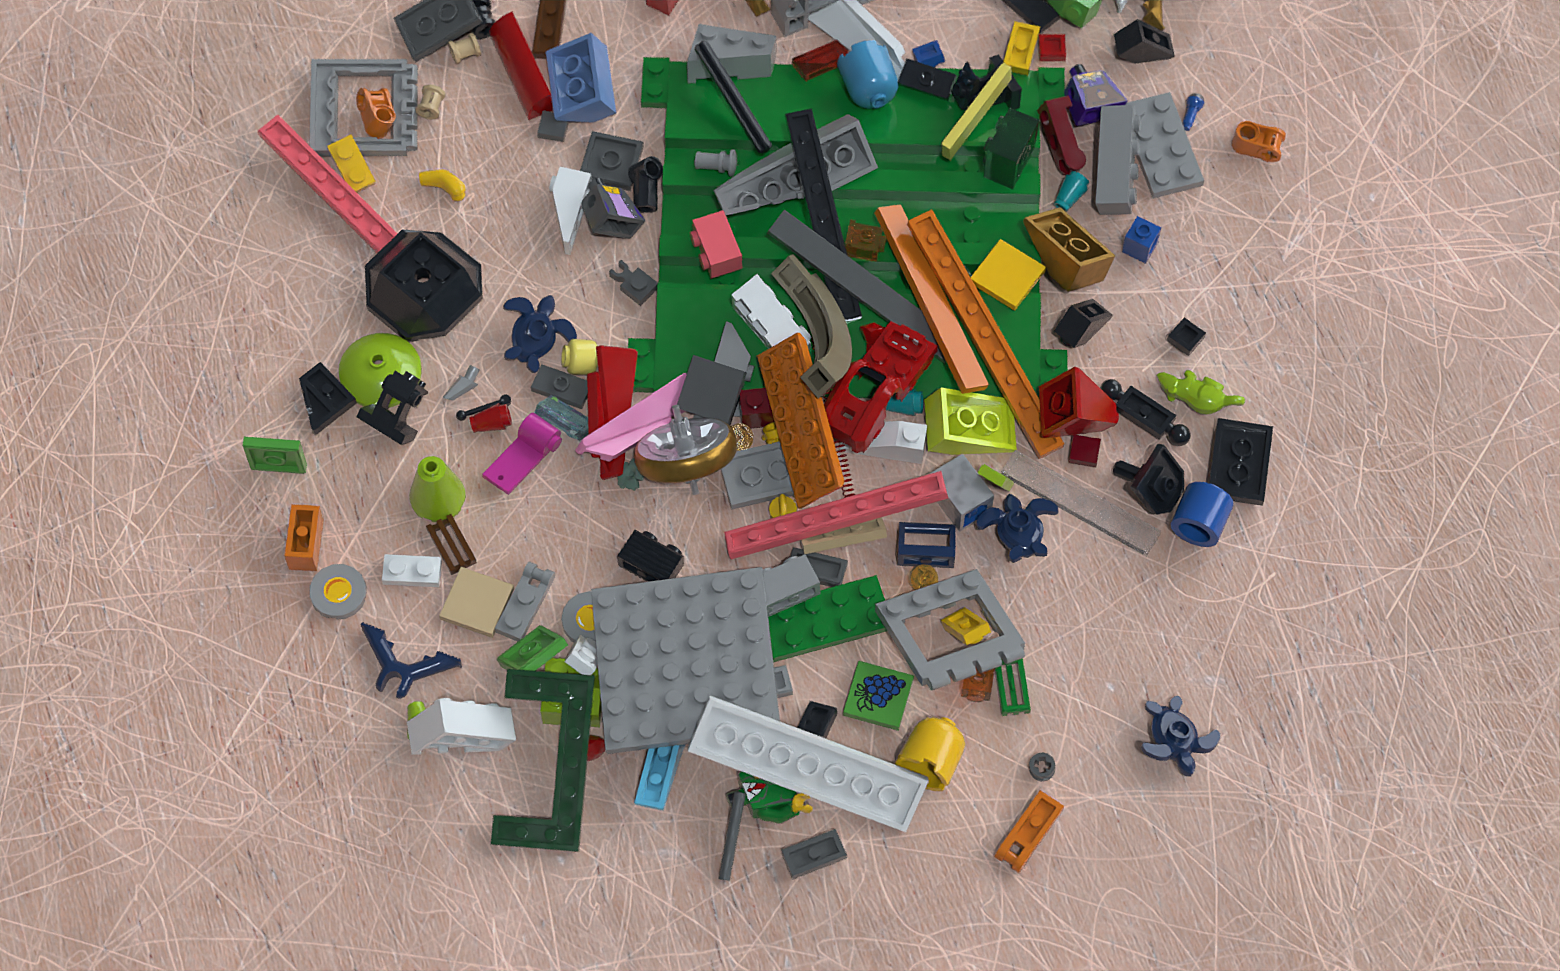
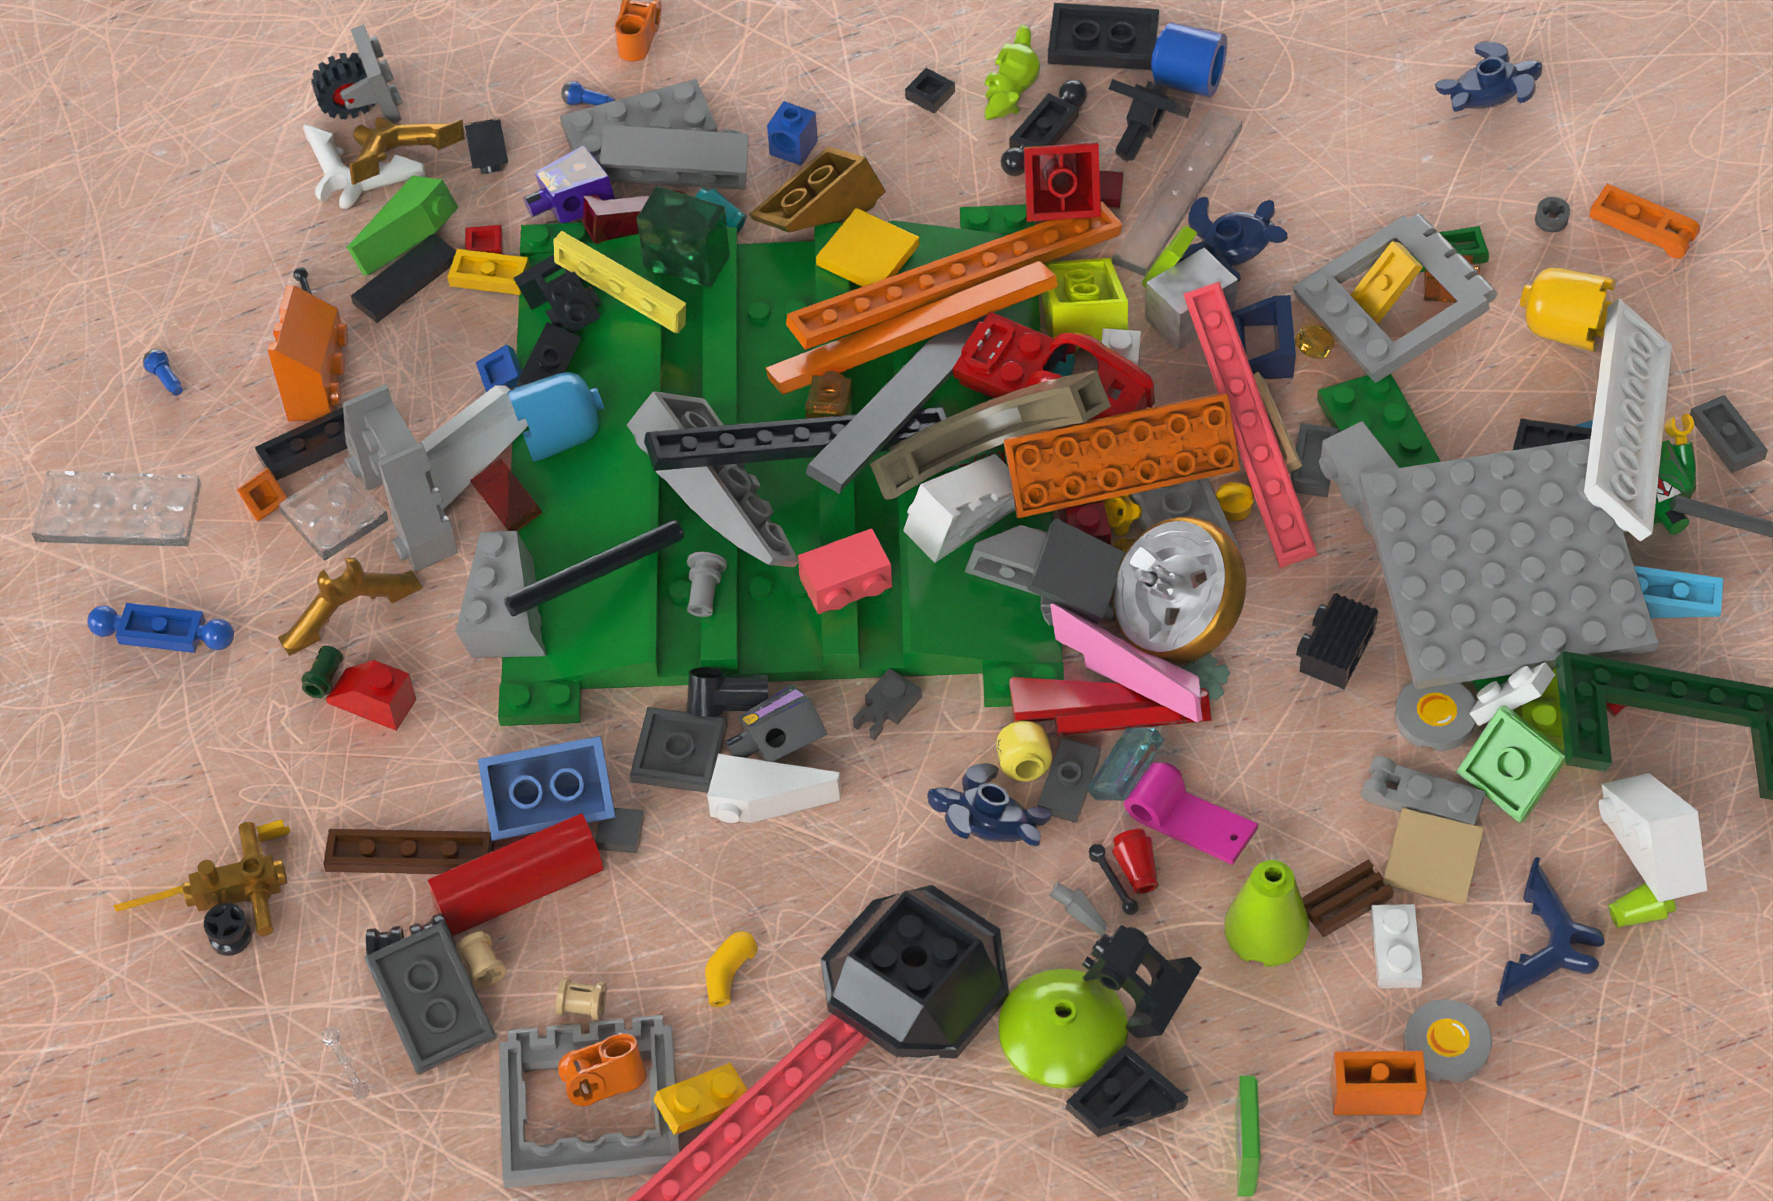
camera: 90 degrees left, 10 degrees down
(871, 333) = (965, 395): red rock -> none
(878, 695) = (1488, 383): bright green tile -> none
(1082, 322) = (922, 190): black slope -> none

